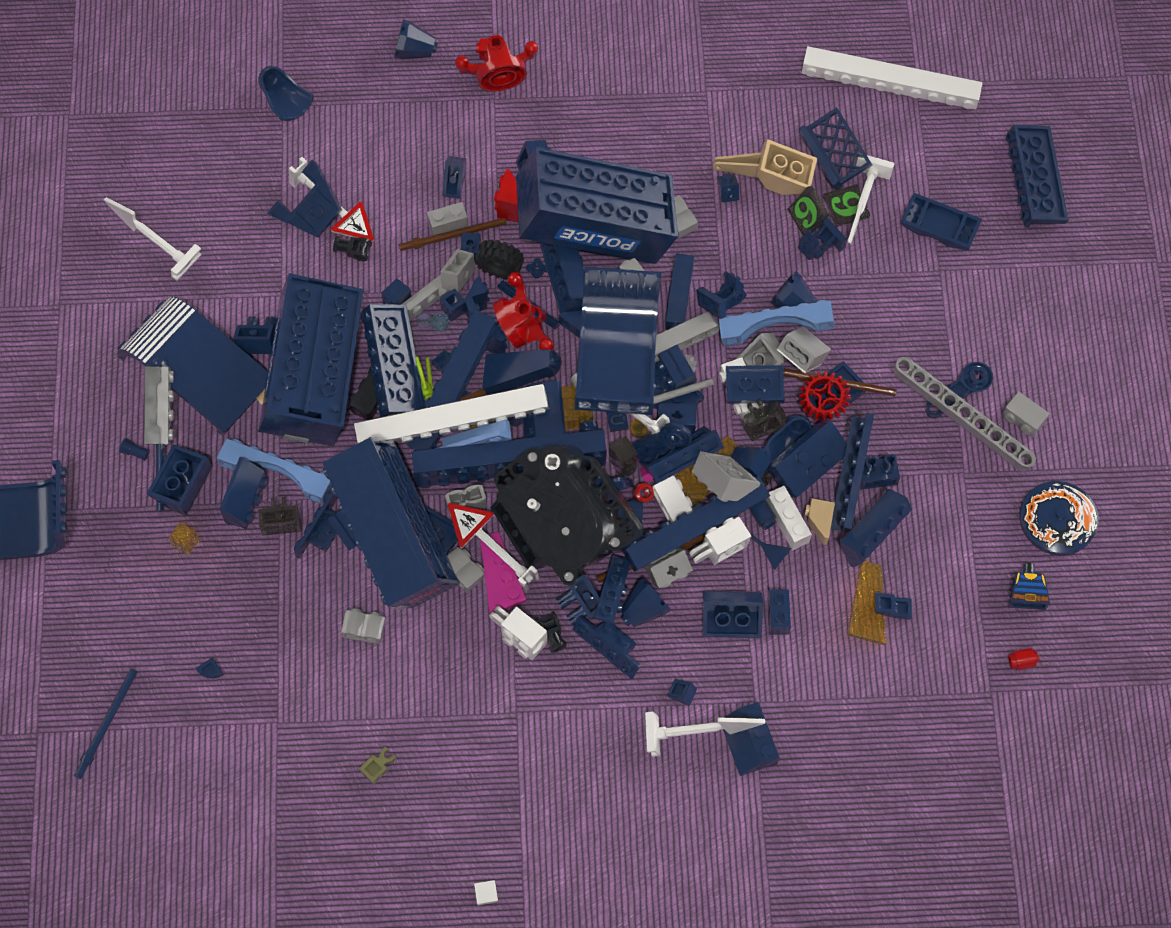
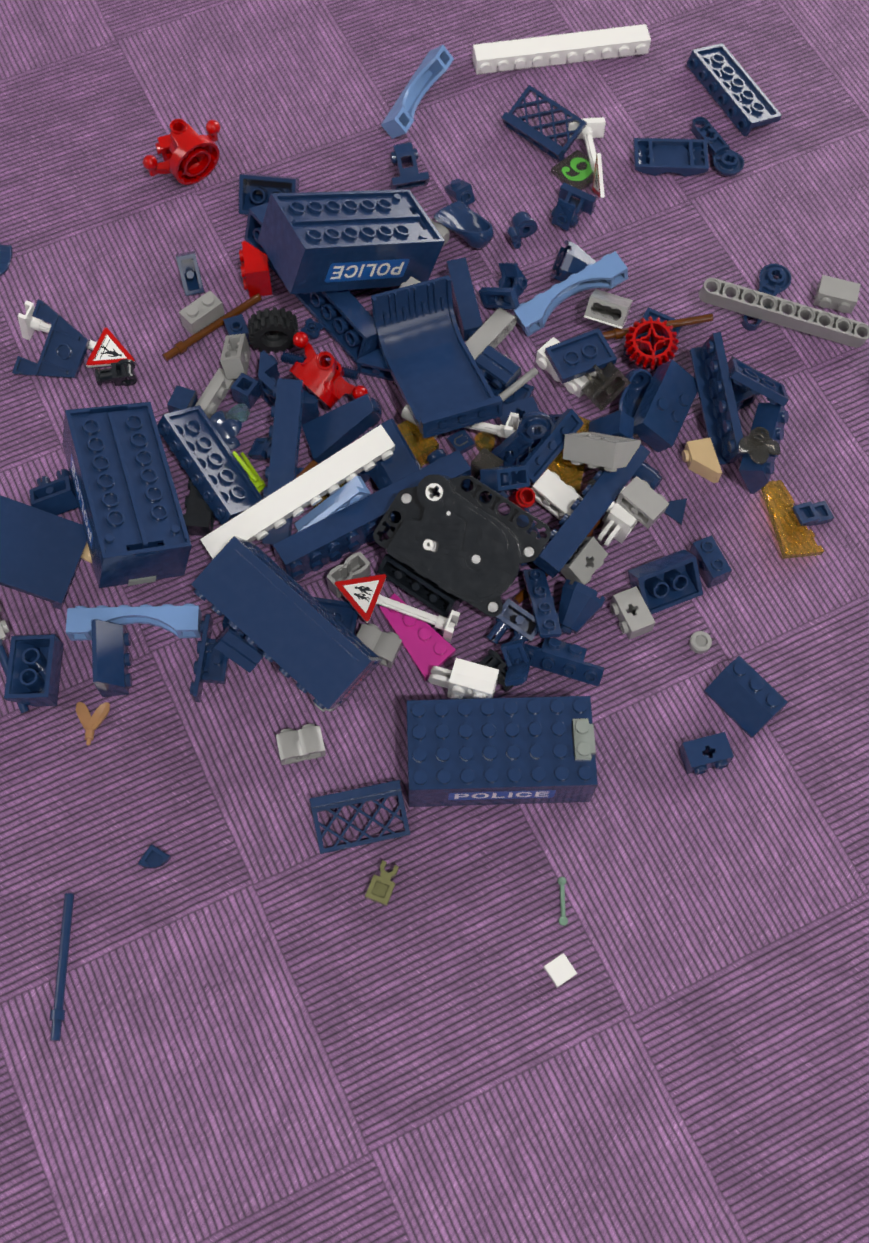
camera: 25 degrees left, 0 degrees up
(184, 538) = (65, 730): clear yellow brick -> none
(208, 540) = (89, 722): none -> medium nougat piece
(279, 519) = (161, 669): clear smoke brick -> none
(389, 687) = (353, 797): none -> dark blue fence
(414, 41) = (92, 162): dark blue cone -> none
(422, 333) = (227, 429): none -> dark blue plate
(508, 855) = (563, 920): none -> sand green hinge
(516, 697) = (500, 751): none -> dark blue piece
(556, 126) = (257, 189): none -> dark blue slope
(570, 631) = (517, 662): none -> dark blue bracket
(629, 470) = (506, 477): none -> dark blue brick
(655, 733) = (654, 728): white piece -> none
(682, 691) = (654, 677): dark blue slope -> none
(688, 156) = (409, 176): none -> dark blue tile
(691, 618) = (632, 602): none -> light grey brick
(702, 772) = (714, 745): none -> dark blue brick
(717, 219) = (466, 224): none -> dark blue hair
(736, 537) = (642, 502): none -> light grey brick
(737, 677) = (700, 642): none -> light grey tile
(756, 57) = (402, 113): none -> medium blue arch
(763, 351) = (570, 324): light grey slope -> none
(767, 242) = (522, 227): none -> dark blue piece
(777, 167) = (501, 154): tan slope -> none
(789, 518) = (674, 469): white brick -> none
(808, 211) = (547, 185): clear smoke tile -> none
(861, 529) = (759, 445): none -> clear smoke plate
(891, 470) = (757, 382): none -> dark blue plate
(990, 232) = (718, 148): none -> dark blue beam

